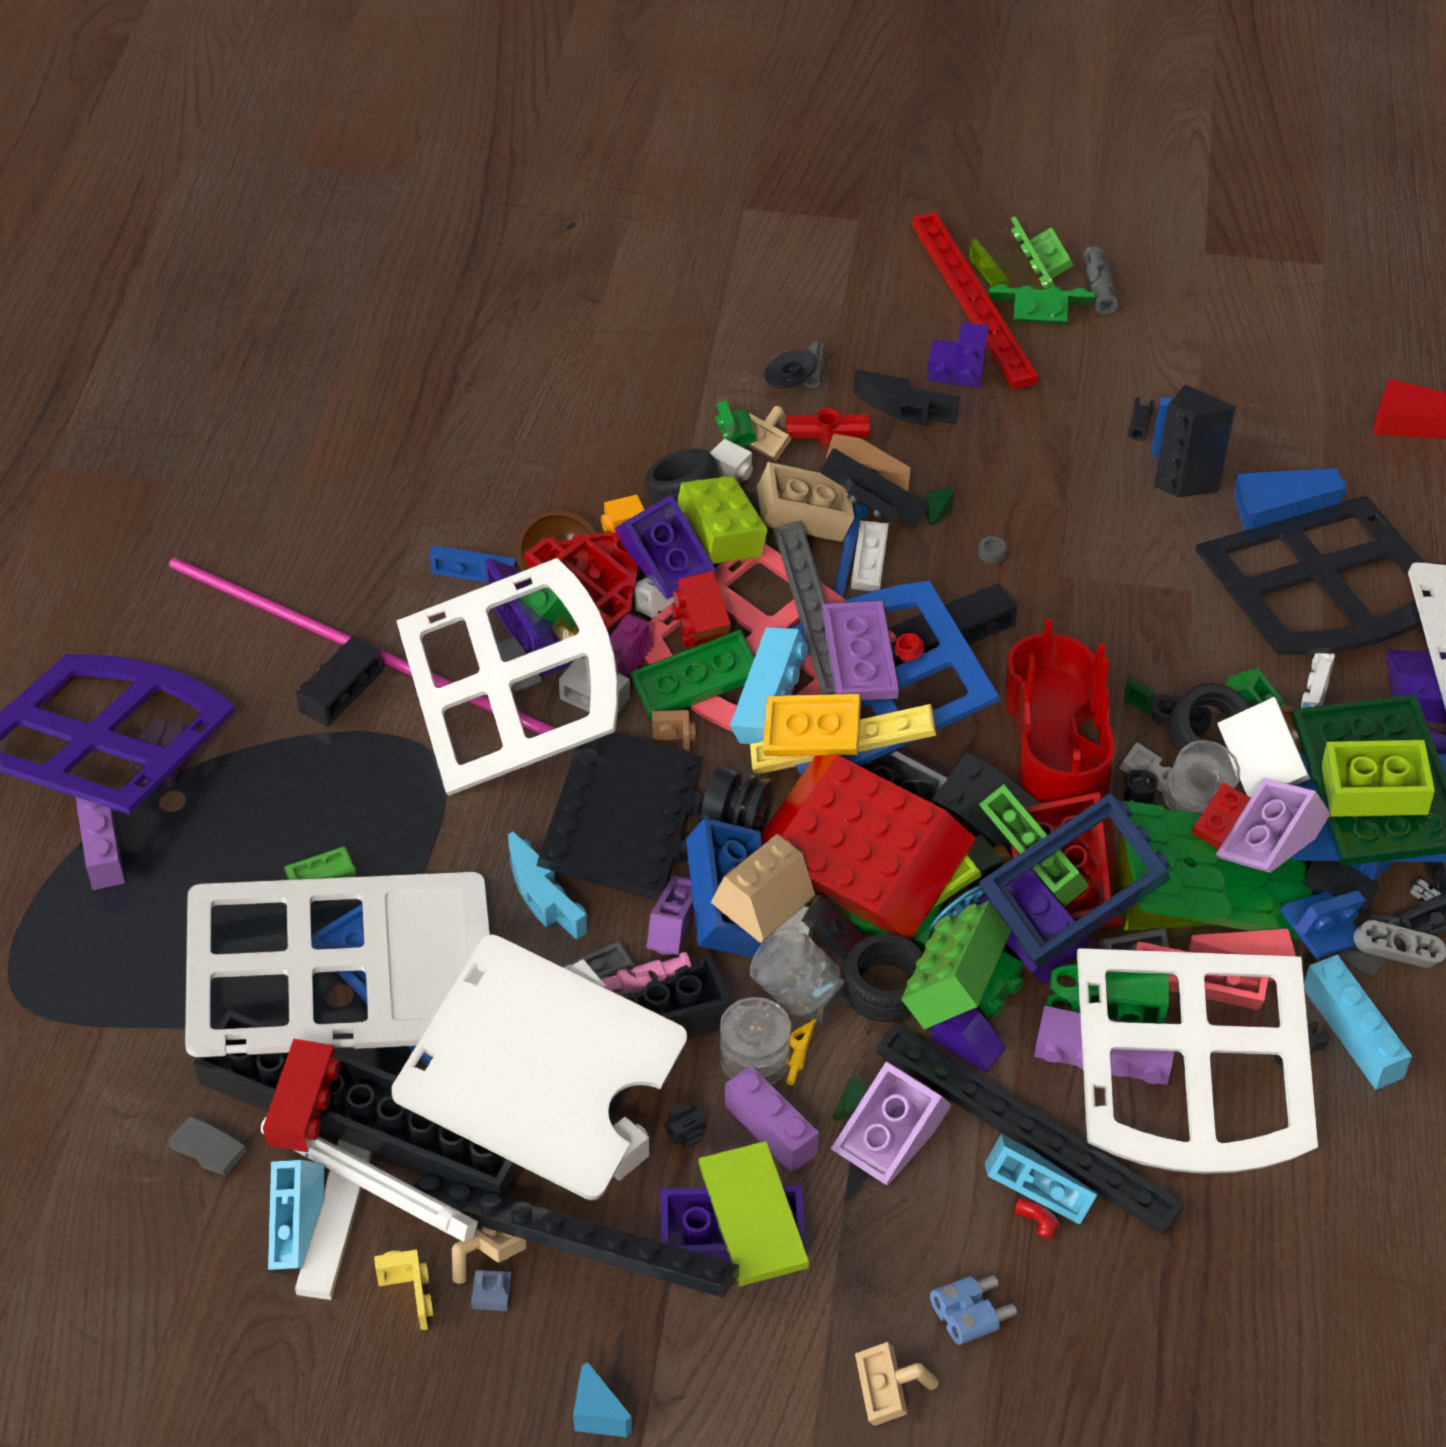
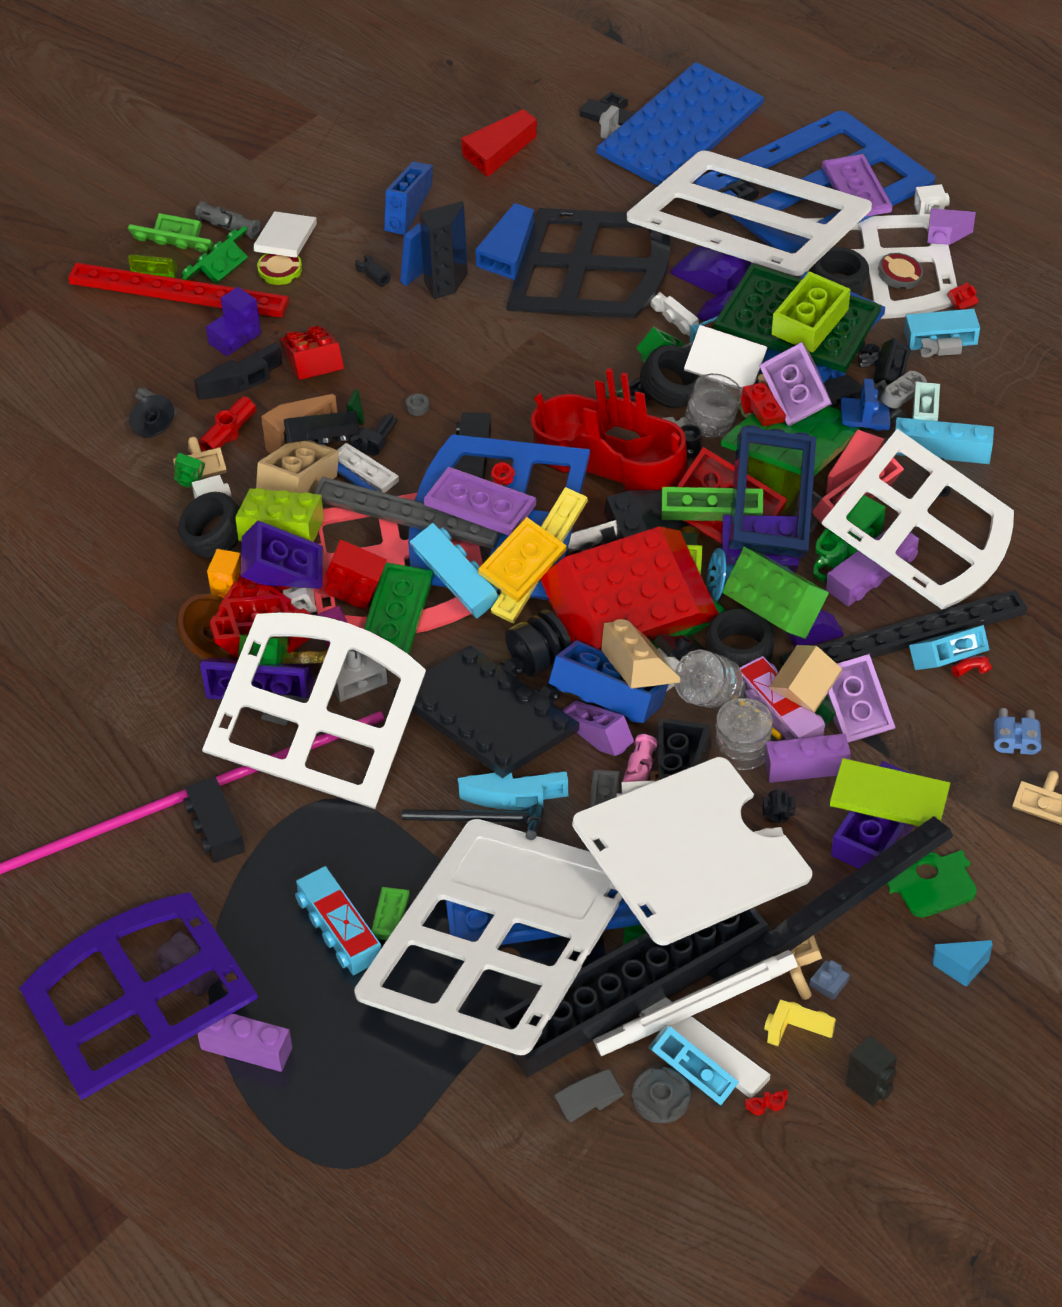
camera: 55 degrees left, 0 degrees up
(244, 1210) = (661, 1095): none -> dark grey tile
(284, 831) = (338, 920): none -> medium azure brick
(289, 1304) = (774, 1101): none -> red piece
(301, 1095) = (615, 999): red brick -> none
(375, 1381) = (871, 1071): none -> pearl dark grey brick
(463, 563) = (170, 687): blue plate -> none
(514, 919) = (530, 817): none -> black bar
(673, 725) = (431, 644): medium nougat bracket -> none
(687, 1344) = (945, 891): none -> green piece
(830, 1057) = (787, 716): none -> lavender brick
(860, 1056) = (806, 677): none -> tan slope
(906, 542) = (374, 441): none -> black piece
(981, 433) = (312, 352): none -> red slope
(1078, 351) = (279, 268): none -> tile
(1122, 329) = (285, 234): none -> white tile
(1268, 383) = (406, 197): none -> blue slope
(1390, 976) = (926, 401): none -> light aqua brick

